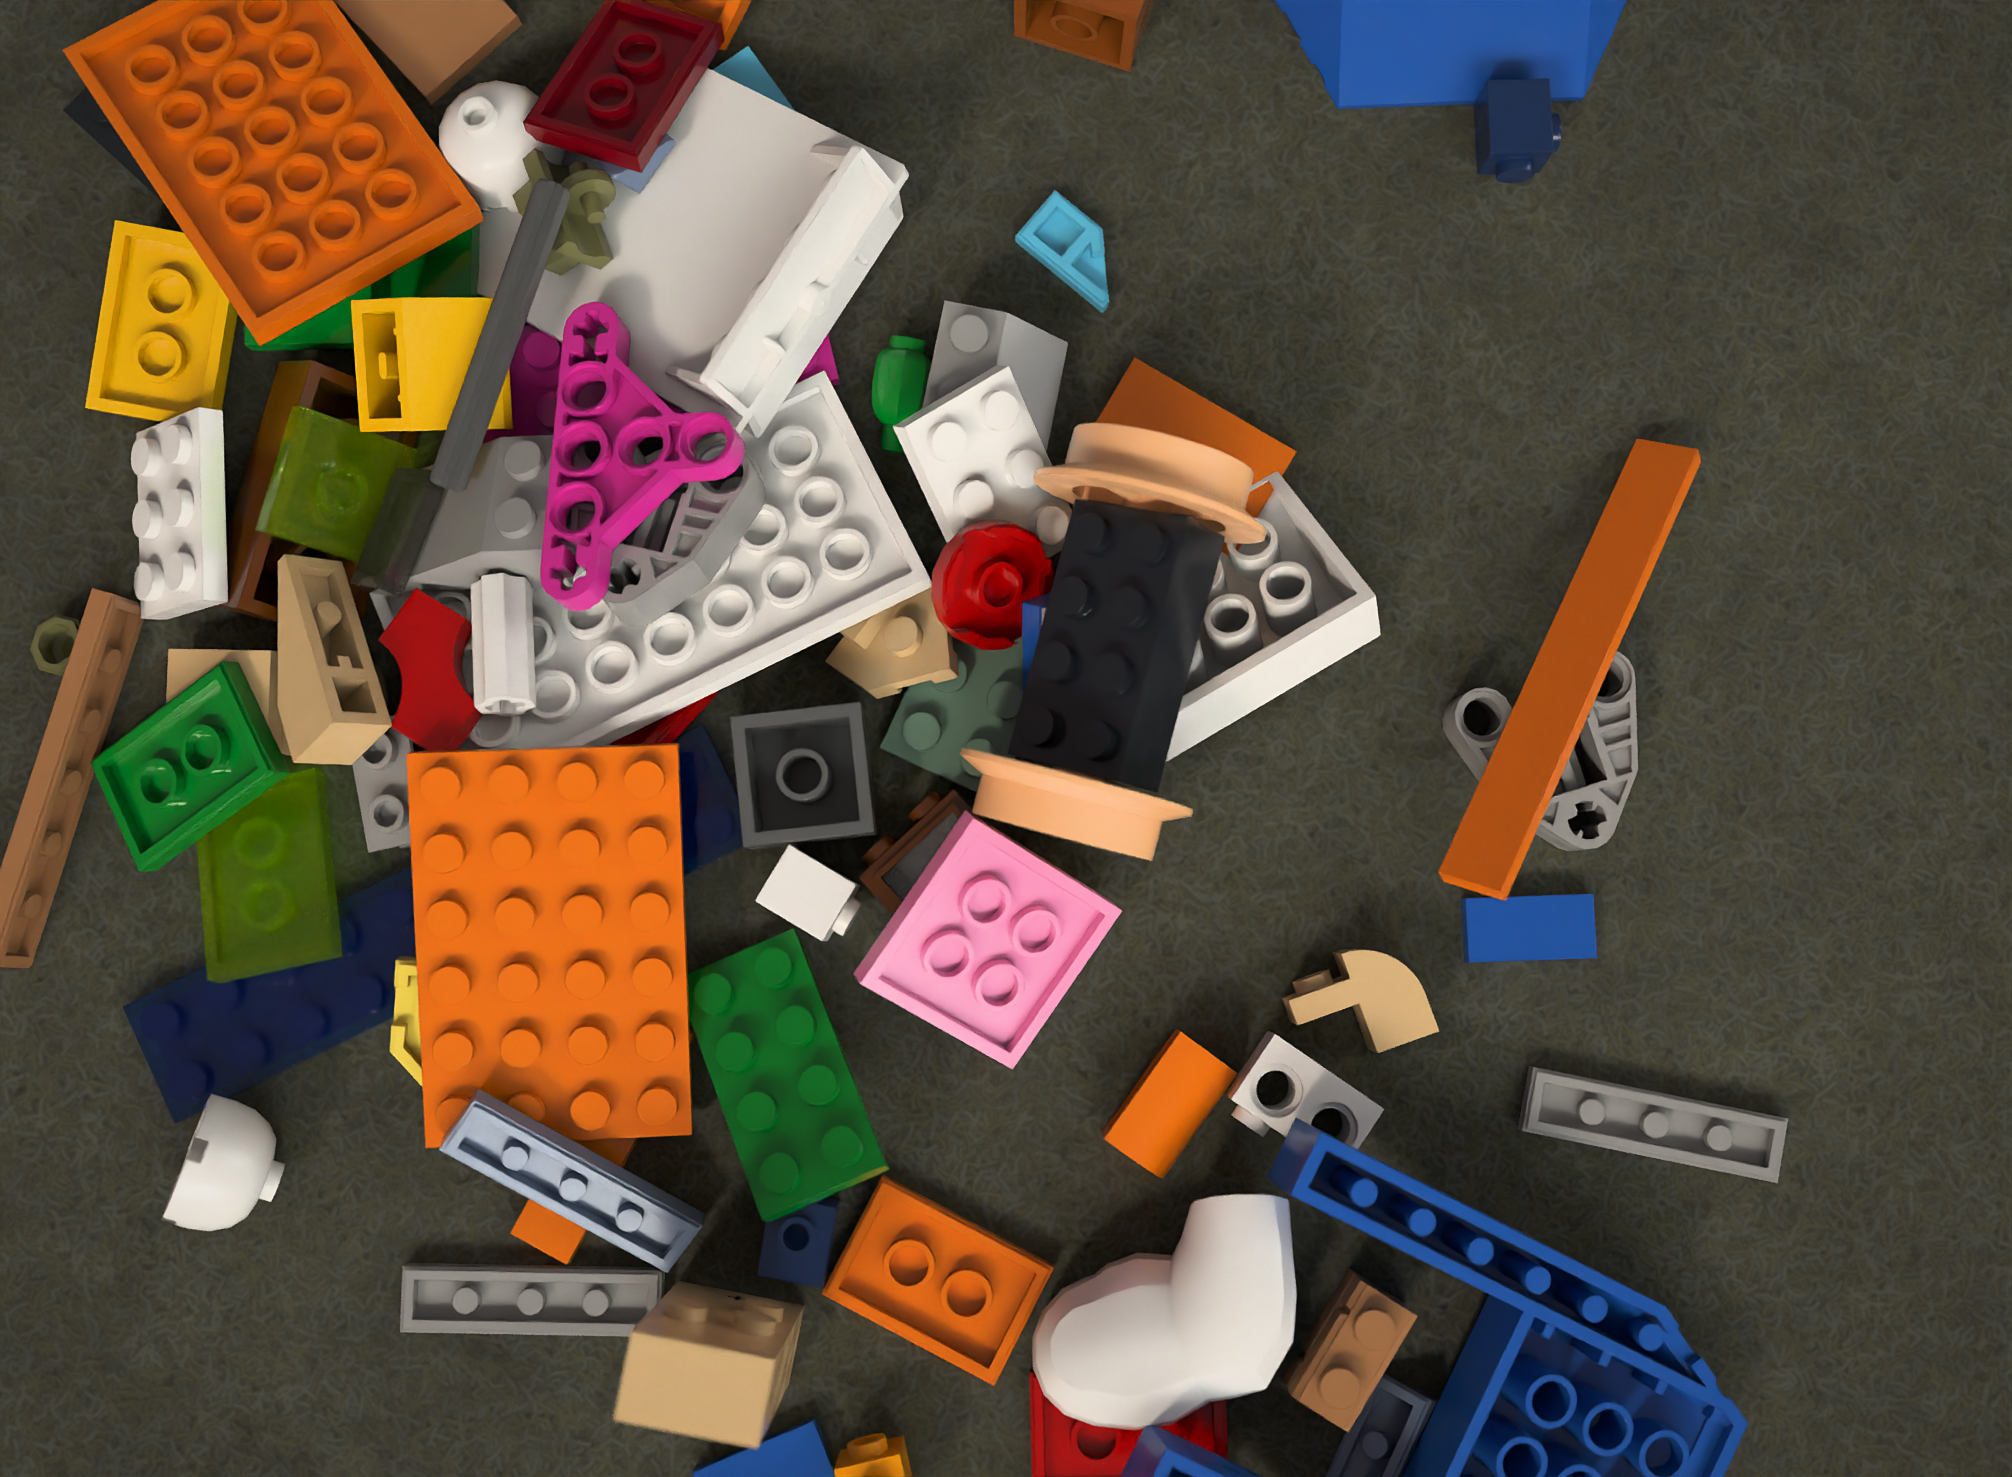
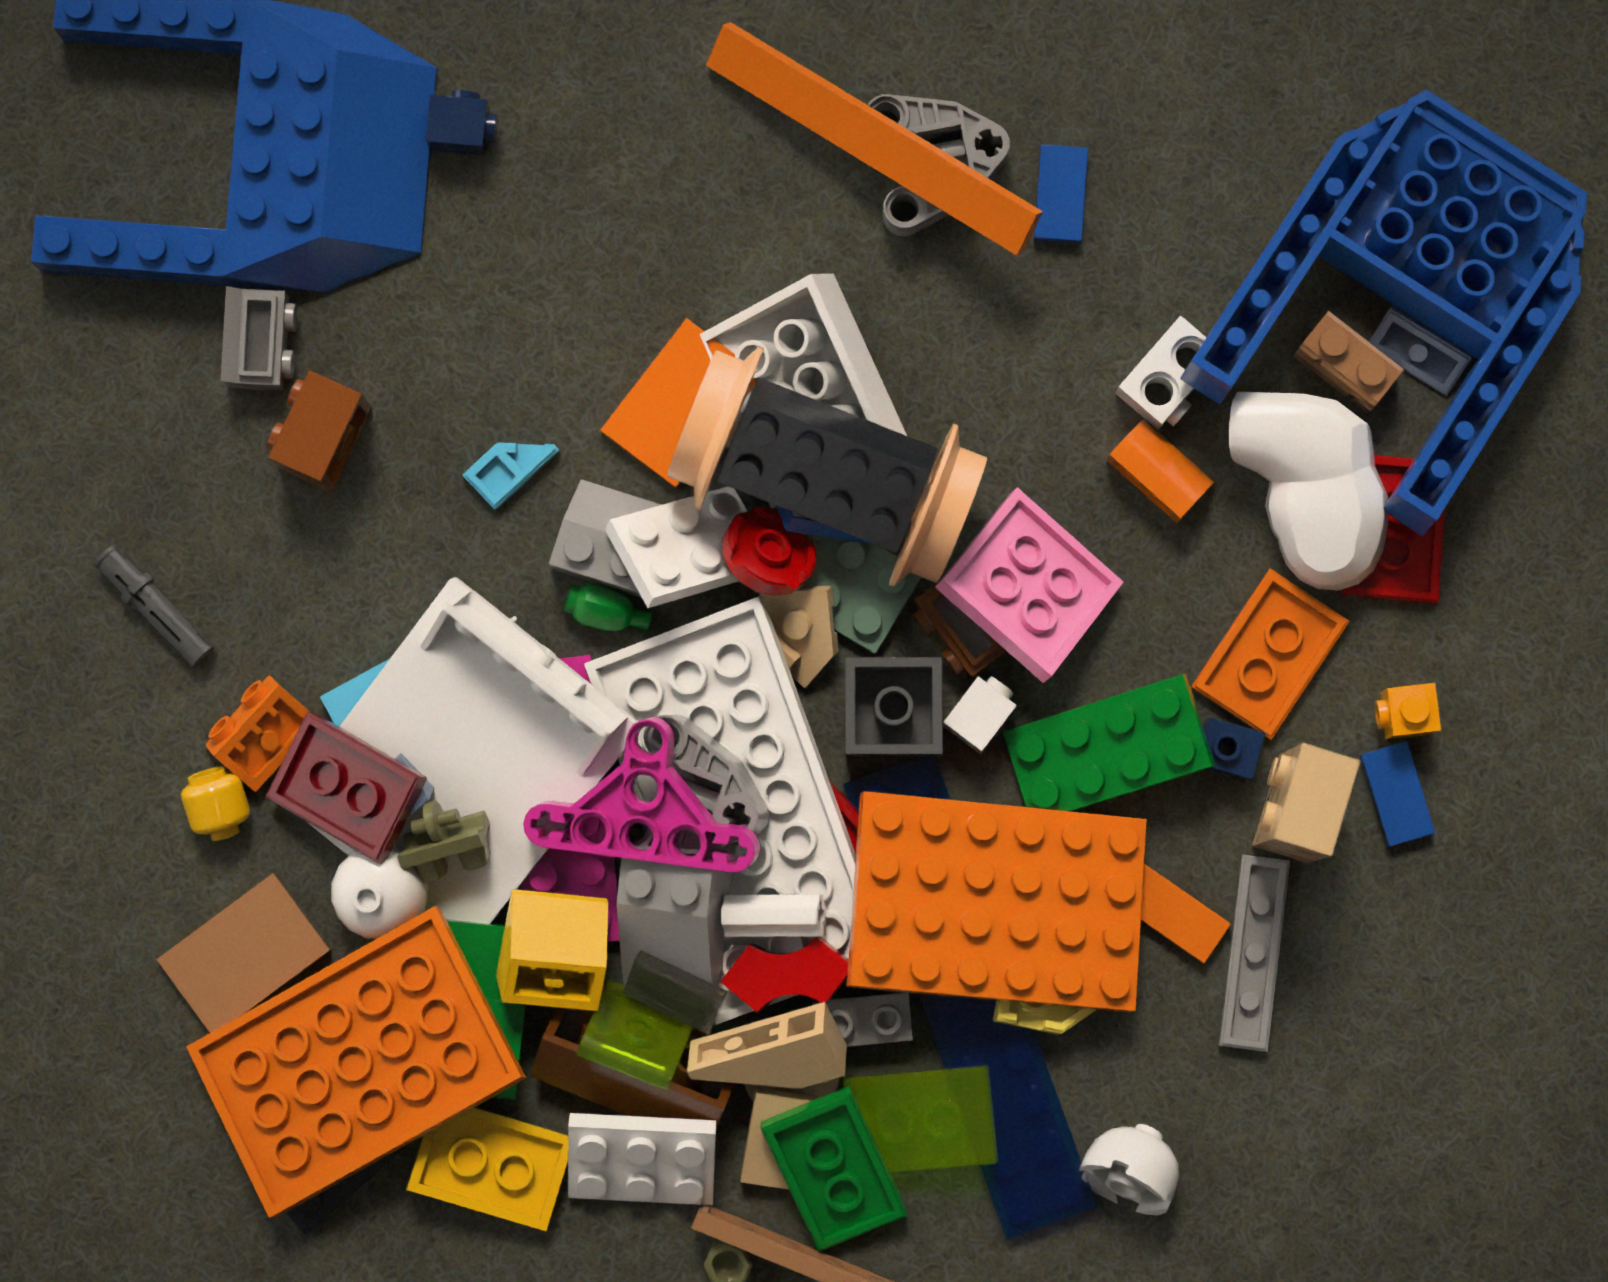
camera: 85 degrees left, 0 degrees up
(500, 335) = (543, 891): dark grey axle -> none
(571, 1180) = (1170, 907): sand blue tile -> none
(1379, 988) = (1096, 306): tan brick -> none
(1653, 1124) = (1212, 124): light grey tile -> none

